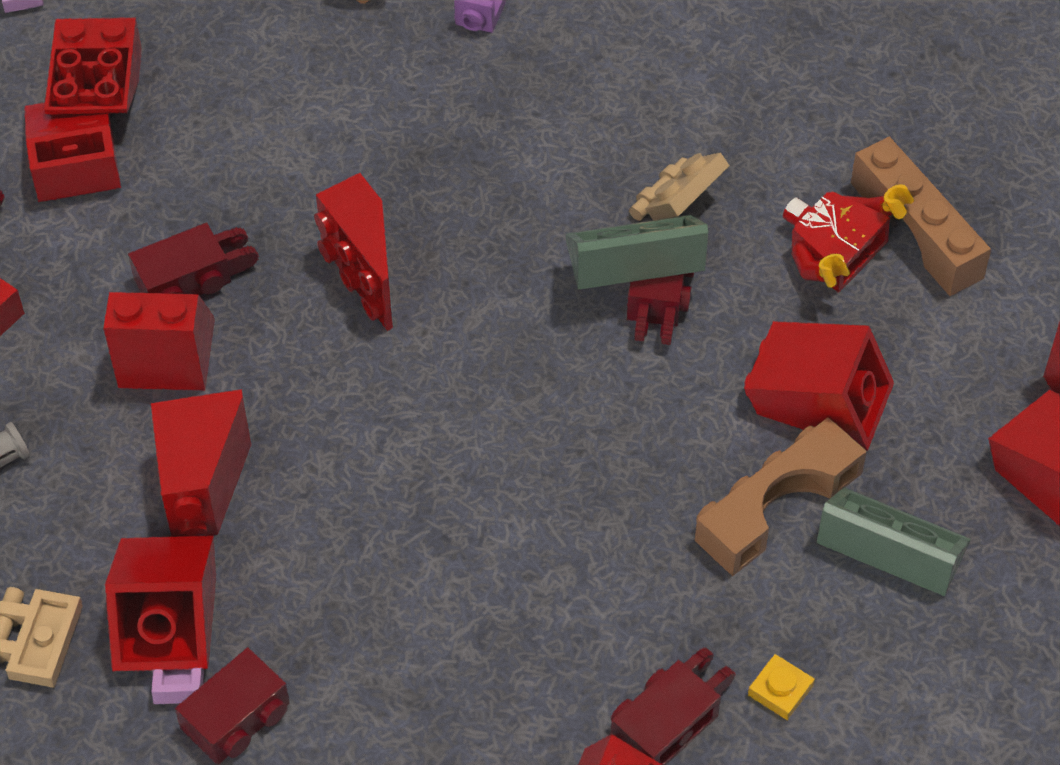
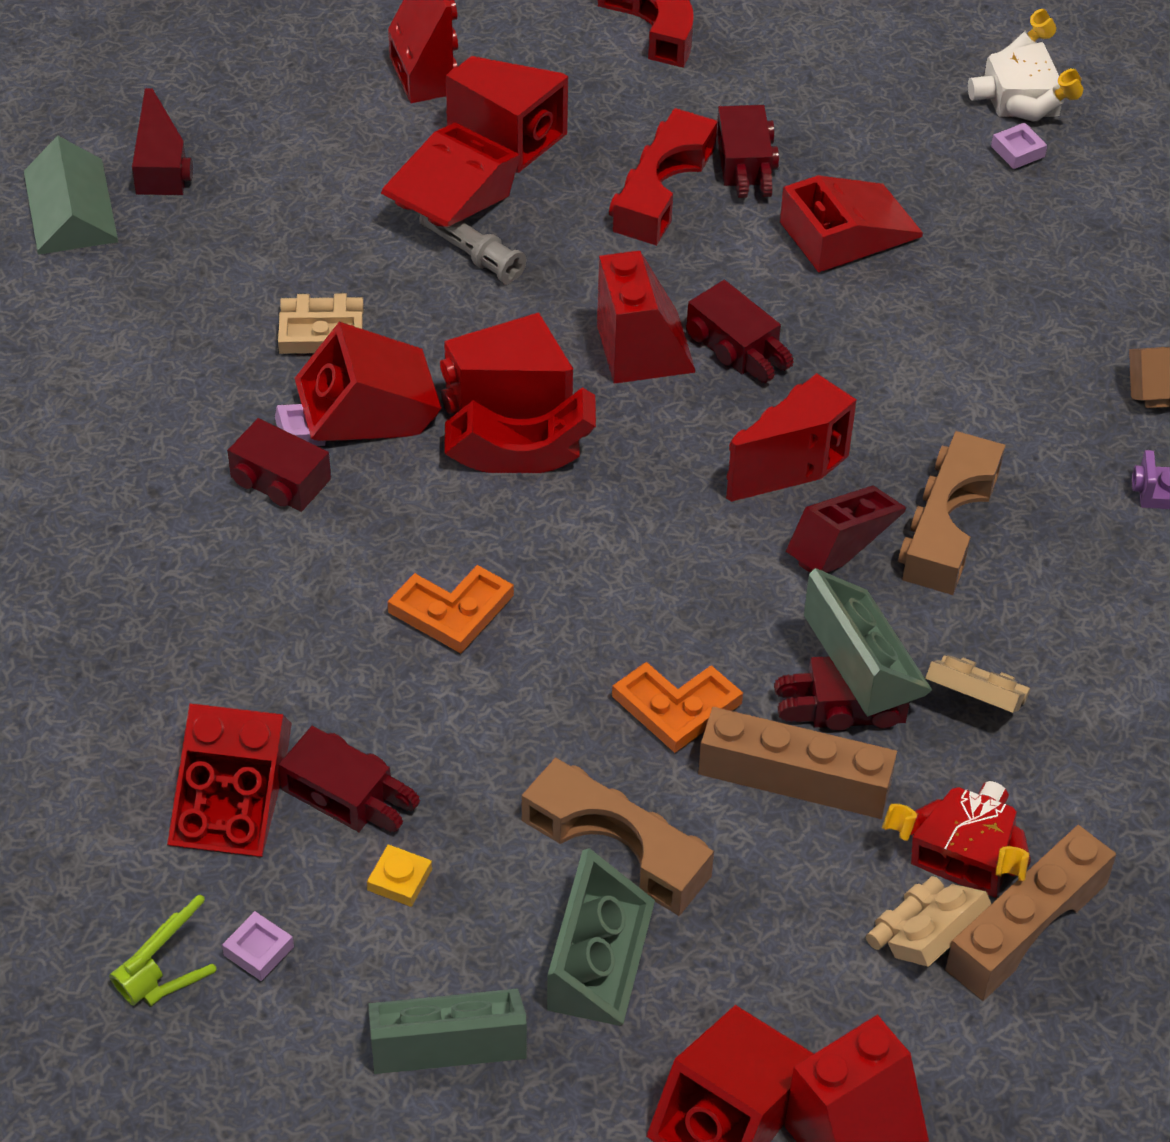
camera: 75 degrees right, 5 degrees down
(93, 66) = (936, 211): red slope -> none
(272, 491) = (520, 445): none -> red arch
(468, 242) = (841, 527): none -> dark red slope
(480, 581) = (453, 616): none -> orange plate
(510, 180) = (939, 547): none -> medium nougat arch
(644, 422) = (675, 713): none -> orange plate
(730, 340) = (797, 762): none -> medium nougat brick
(821, 373) = (767, 853): red slope -> none
(926, 276) = (927, 920): none -> tan plate
(962, 671) = (448, 1031): none -> sand green slope

